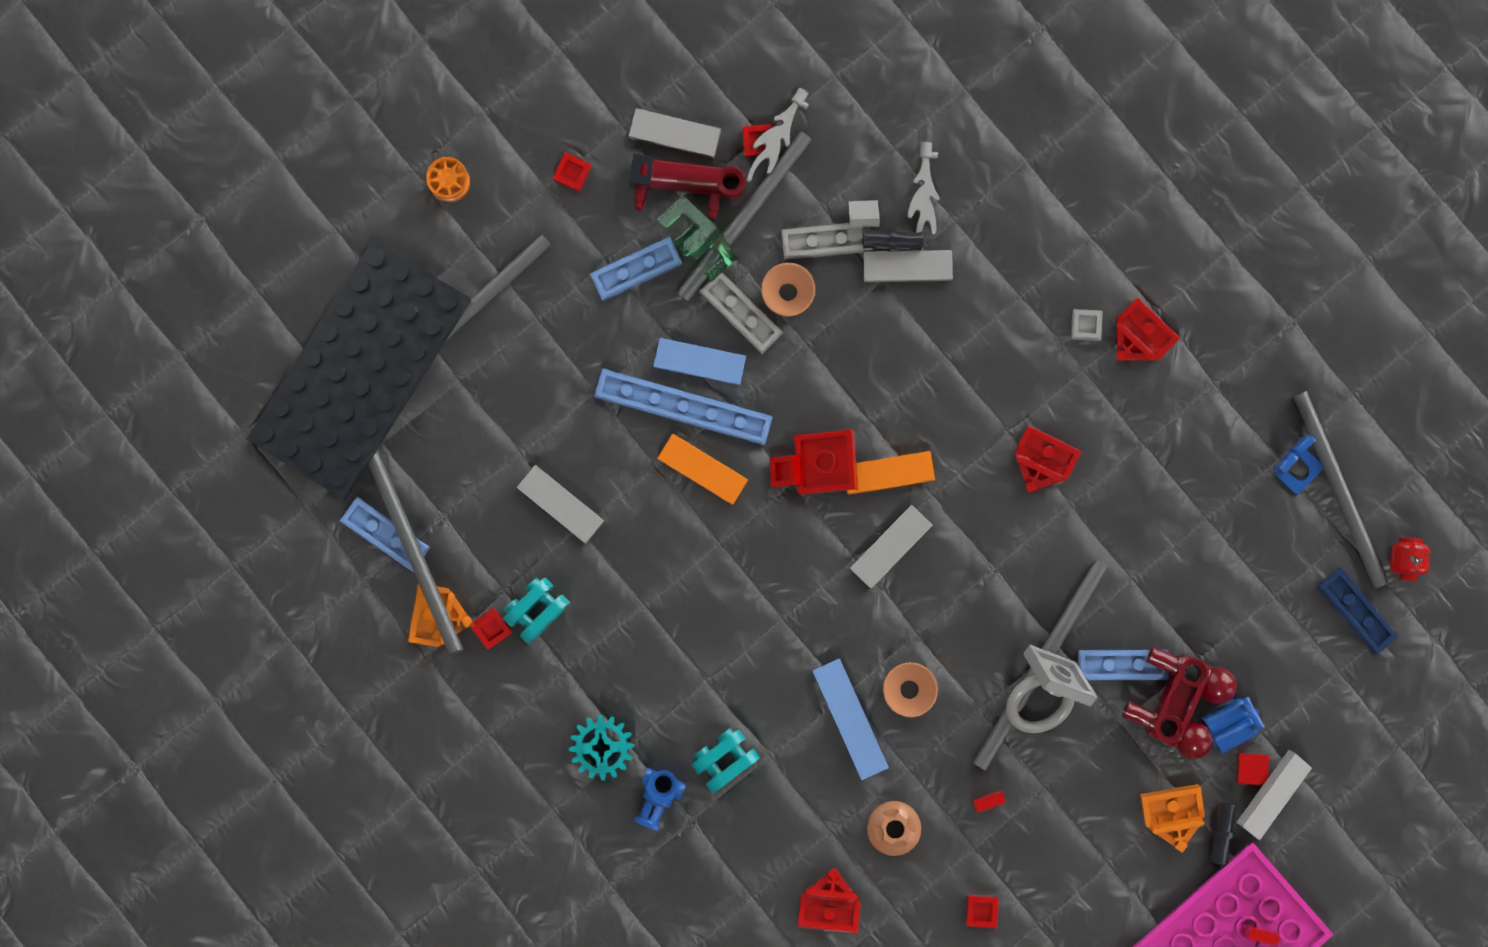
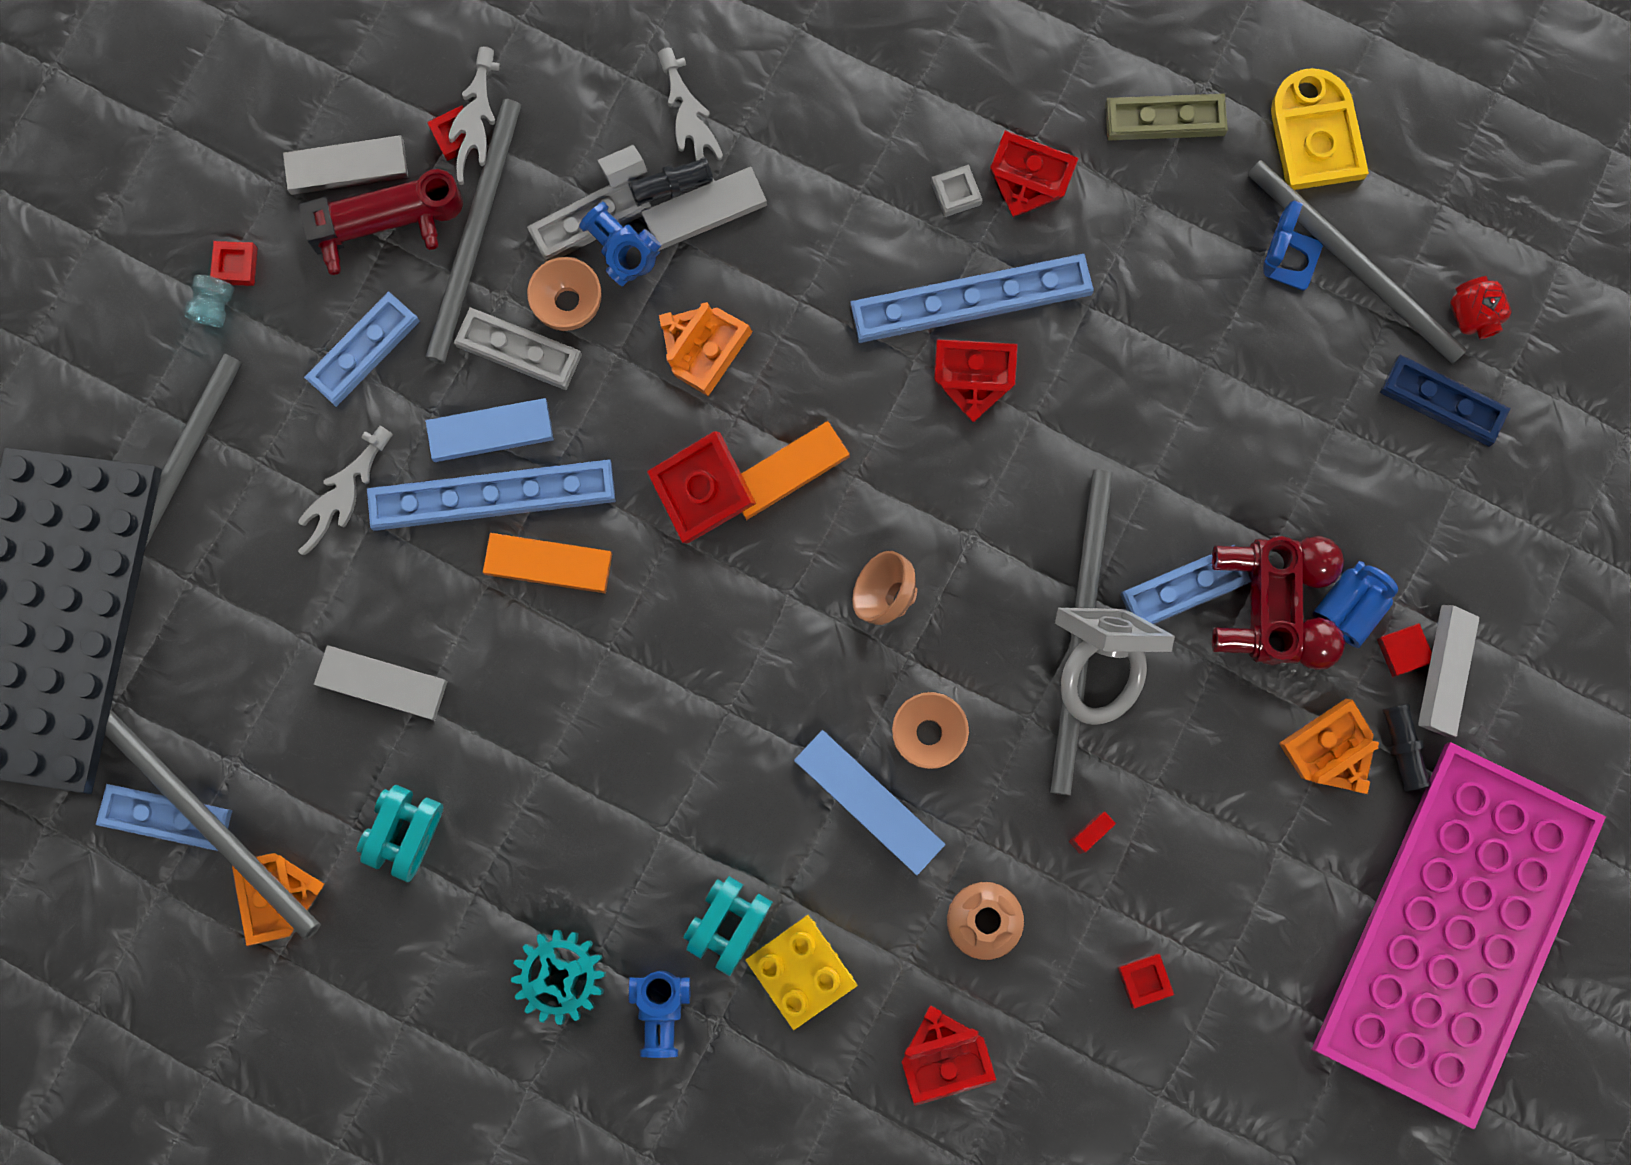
camera: 25 degrees left, 5 degrees down
(448, 179) = (75, 333): orange wheel -> none
(490, 628) = (350, 881): red tile -> none
(543, 200) = (208, 301): none -> clear light blue wheel
(584, 366) = (344, 495): none -> light grey piece
(699, 236) = (424, 263): clear green panel -> none
(759, 810) = (801, 972): none -> yellow hinge
(785, 471) = (654, 520): red tile -> none
(838, 267) = (616, 243): none -> blue connector
(867, 361) = (702, 344): none -> orange slope
(891, 546) = (828, 561): light grey tile -> none
(916, 578) = (878, 585): none -> nougat piece
(1064, 405) = (971, 298): none -> medium blue tile
(1255, 332) = (1166, 117): none -> olive tile
(1261, 935) = (1518, 856): red tile -> none
(1354, 388) = (1317, 135): none -> yellow tile

